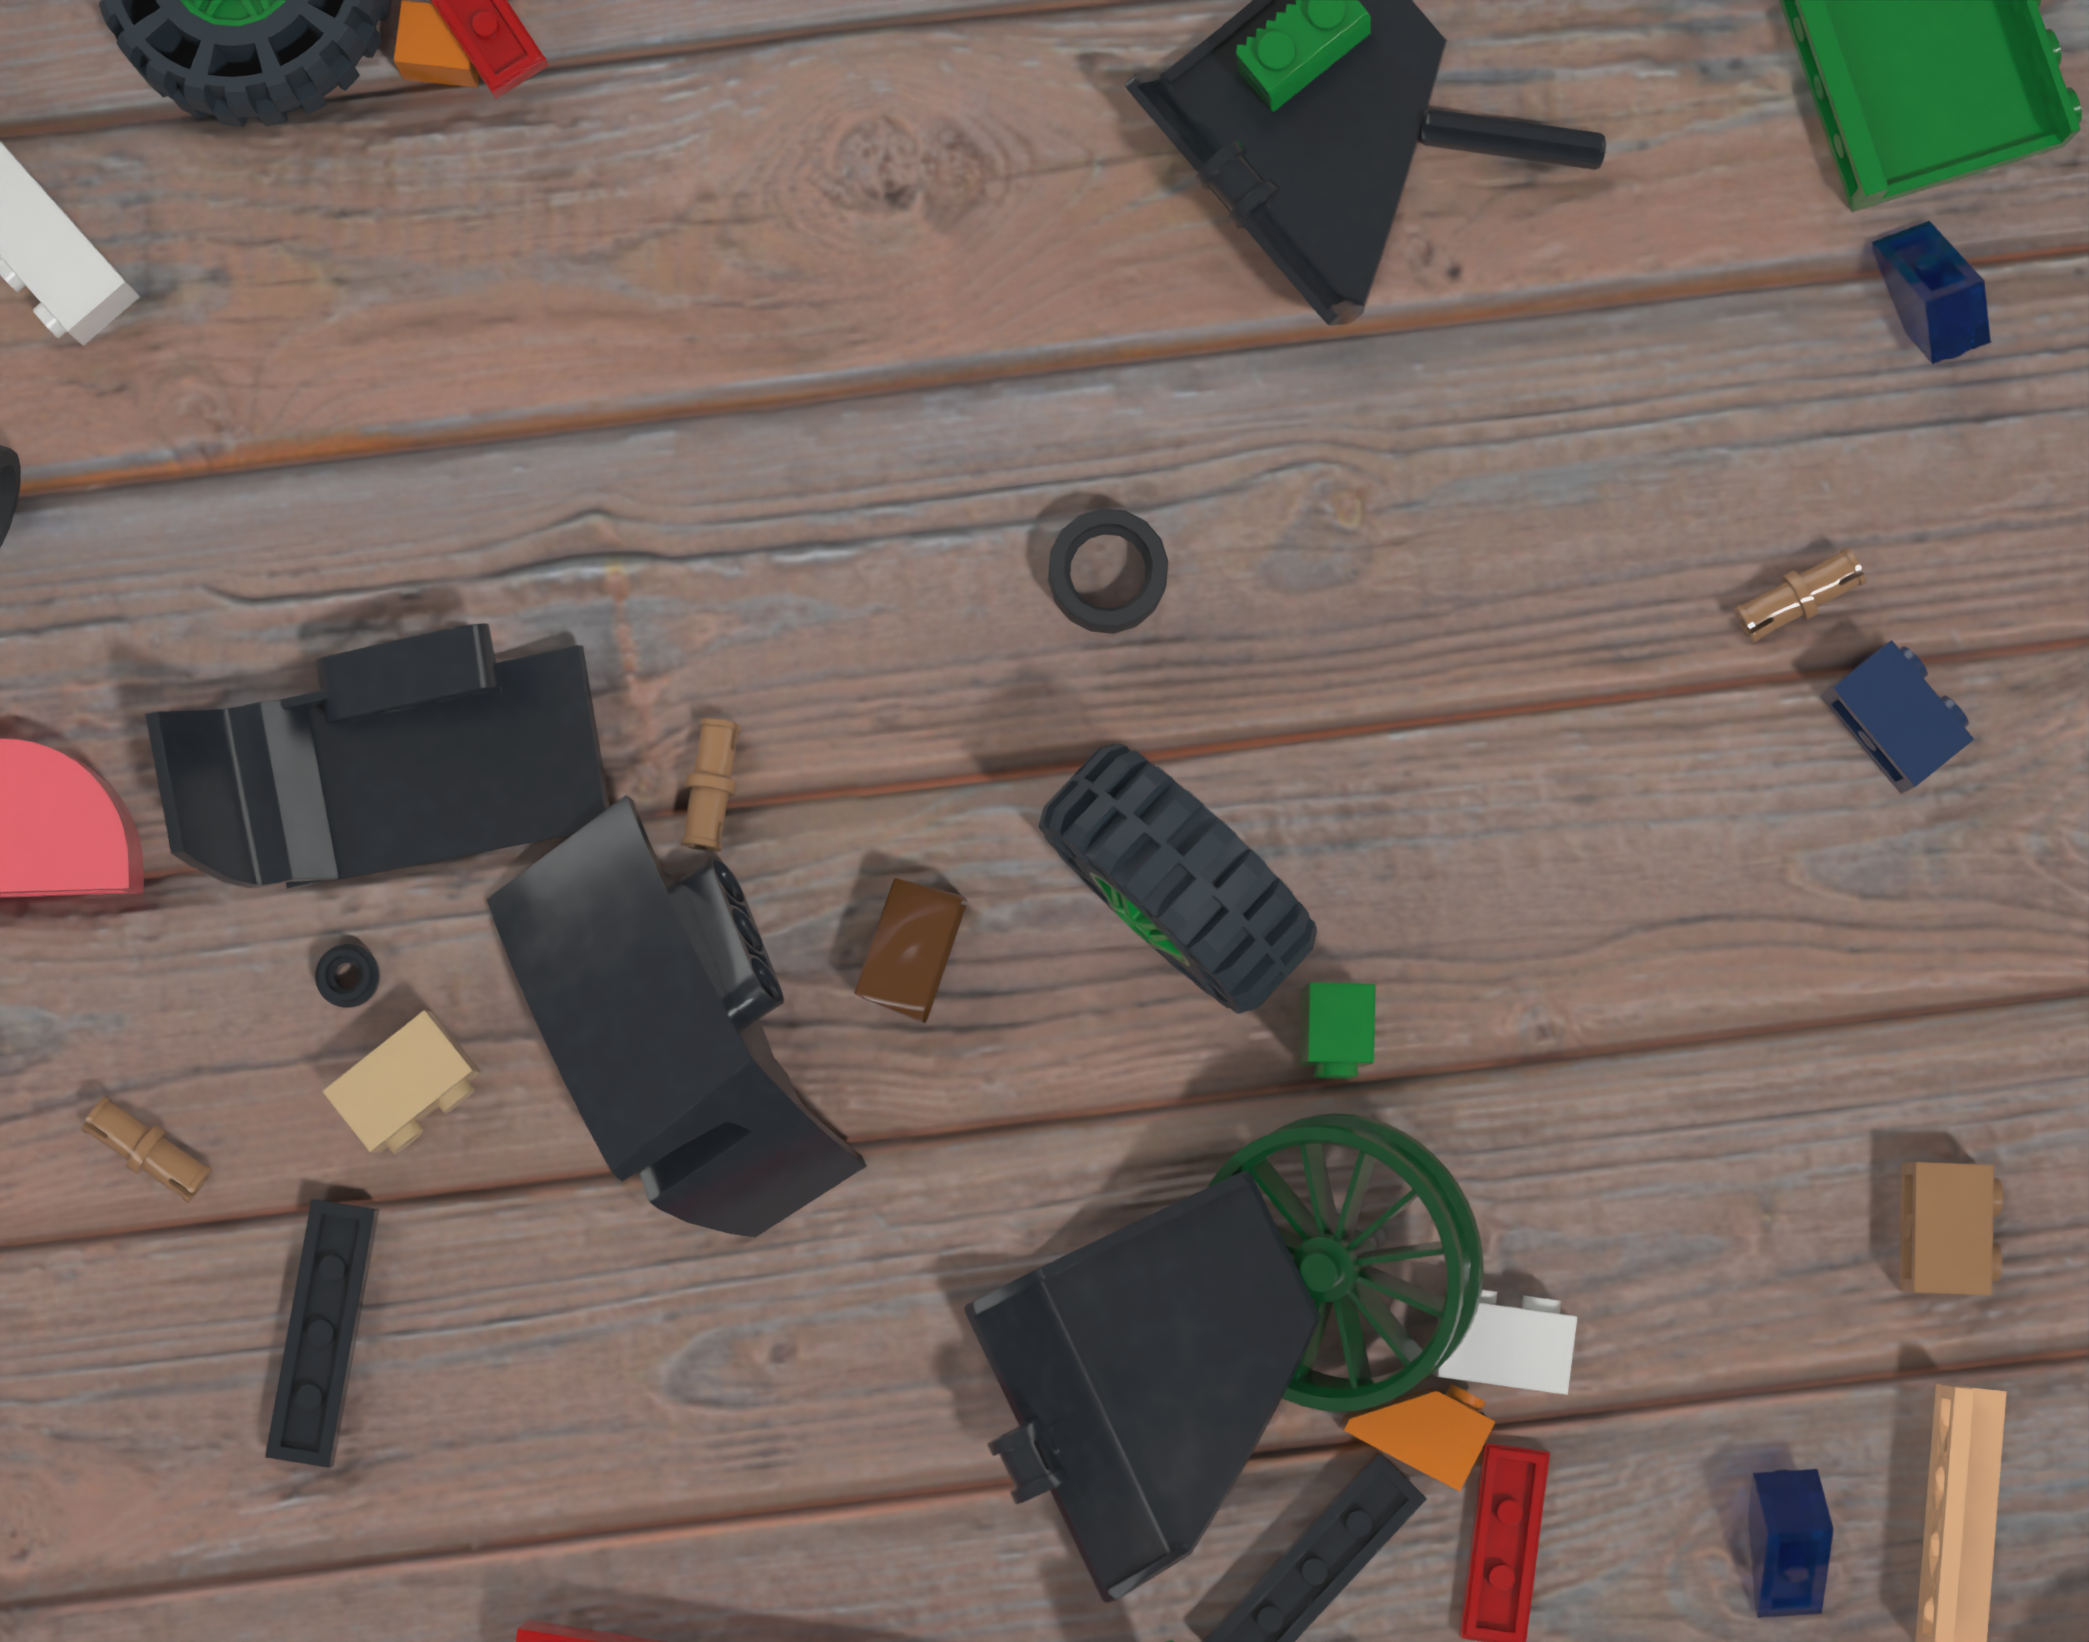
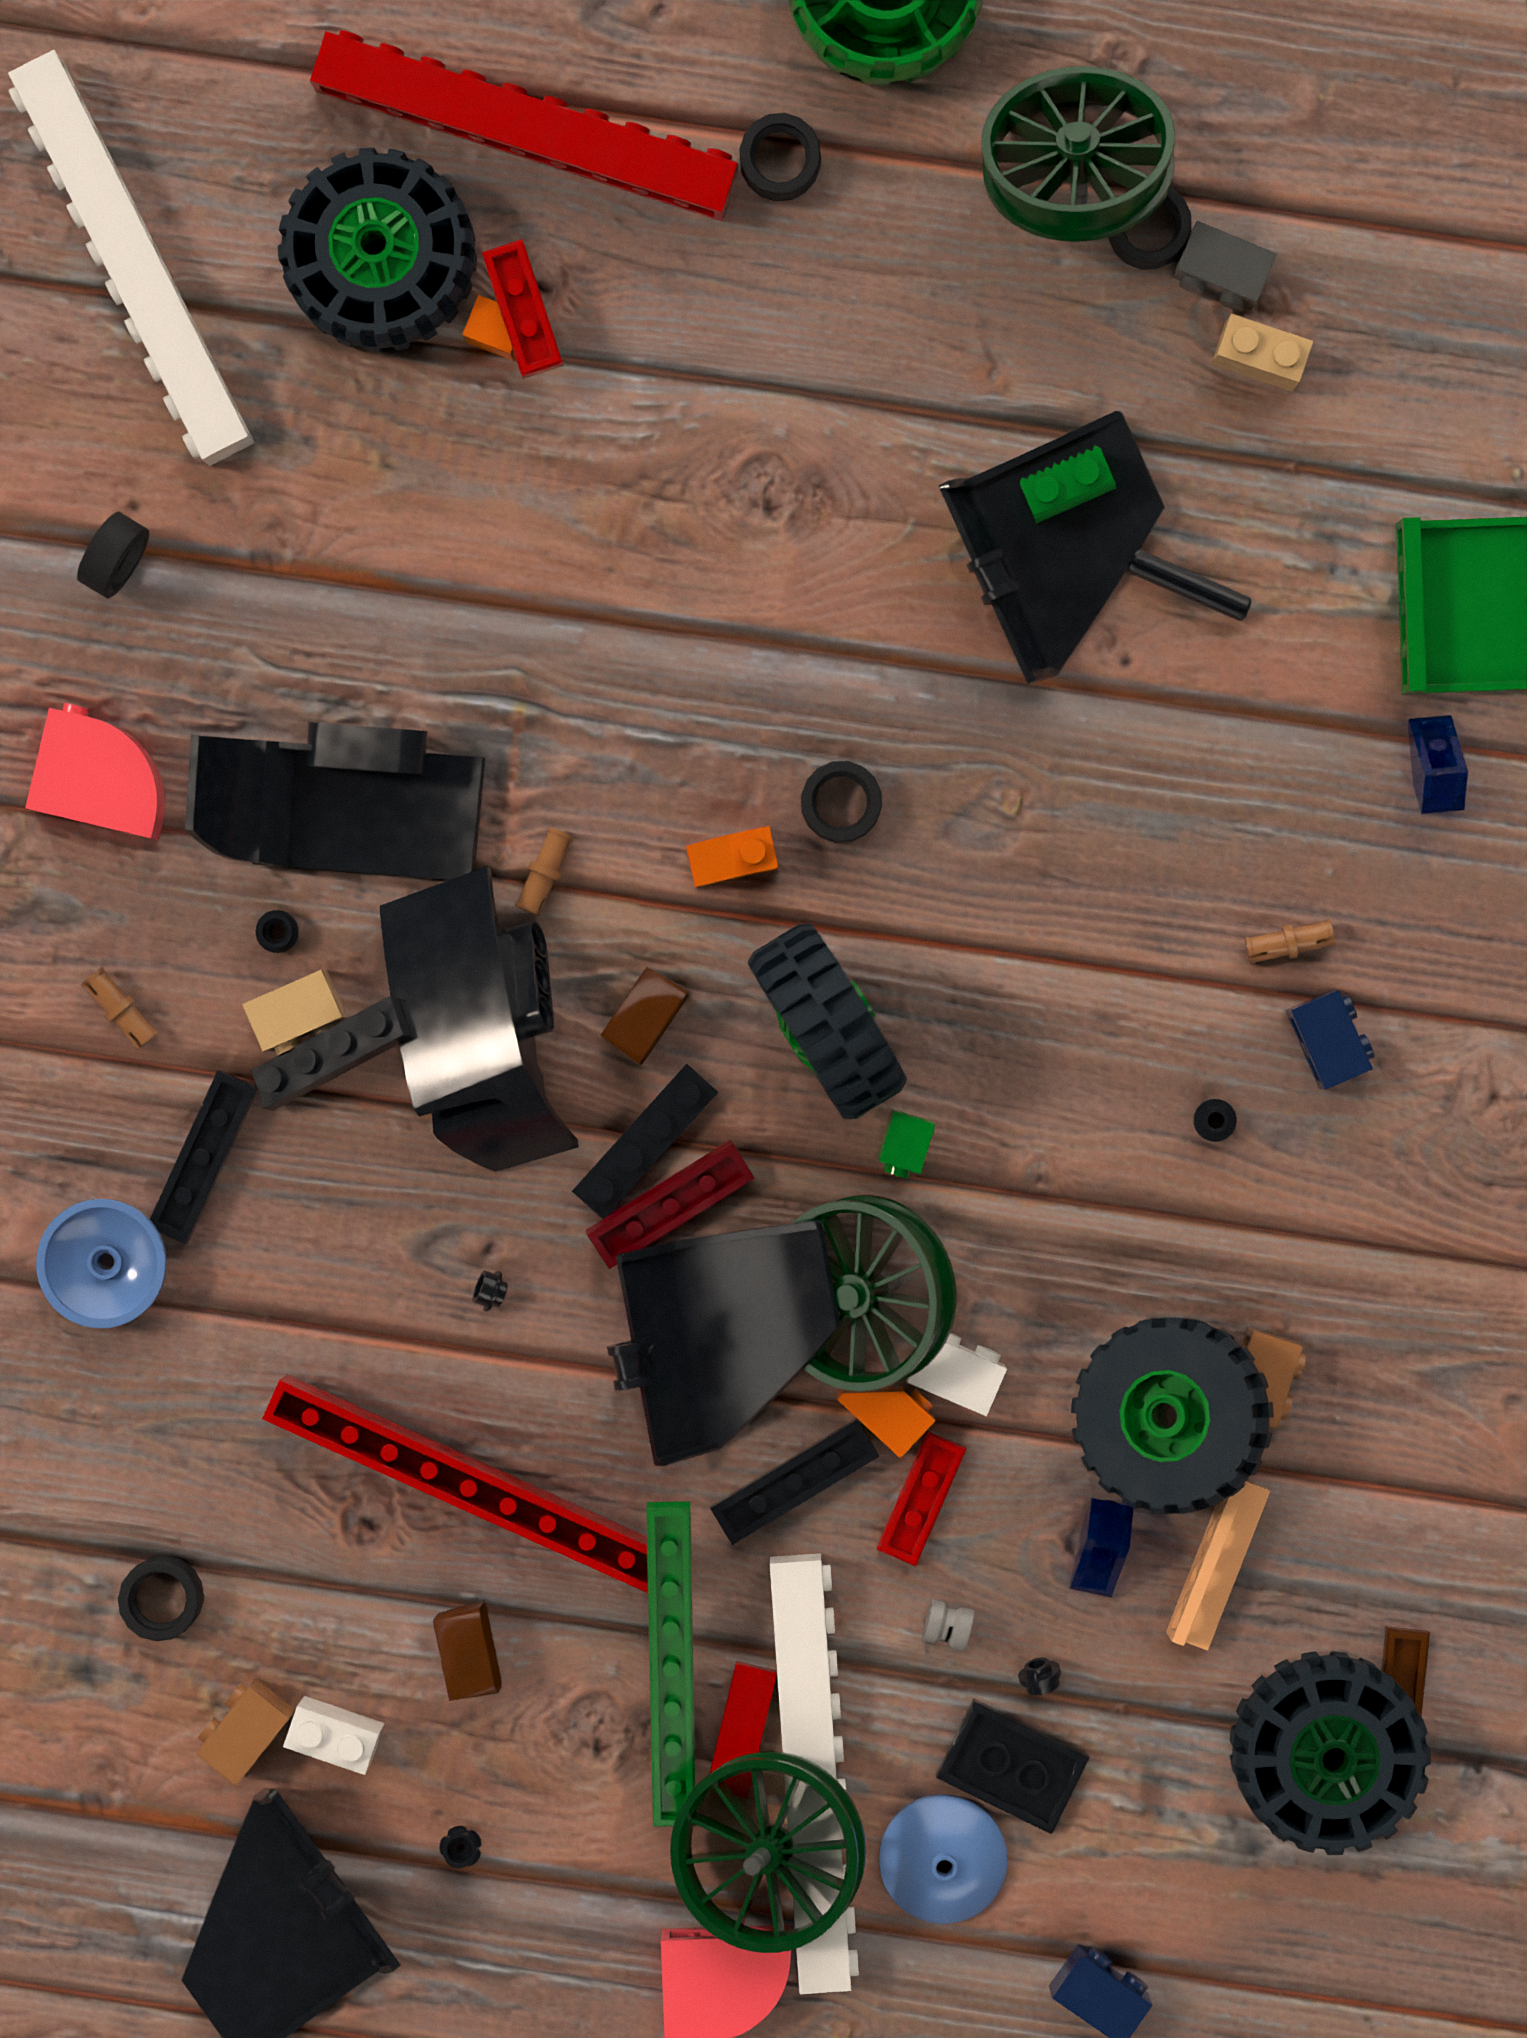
camera: 15 degrees right, 5 degrees up
(168, 1539) = (72, 1267): none -> medium blue dish
(471, 1127) = (331, 1053): none -> black plate
(793, 1412) = (489, 1290): none -> black plate
(959, 1133) = (645, 1141): none -> black plate
(975, 689) = (732, 856): none -> orange slope
(1021, 1212) = (670, 1203): none -> dark red plate
(1748, 877) = (1201, 1115): none -> black plate
(1911, 1304) = (1217, 1405): none -> black wheel

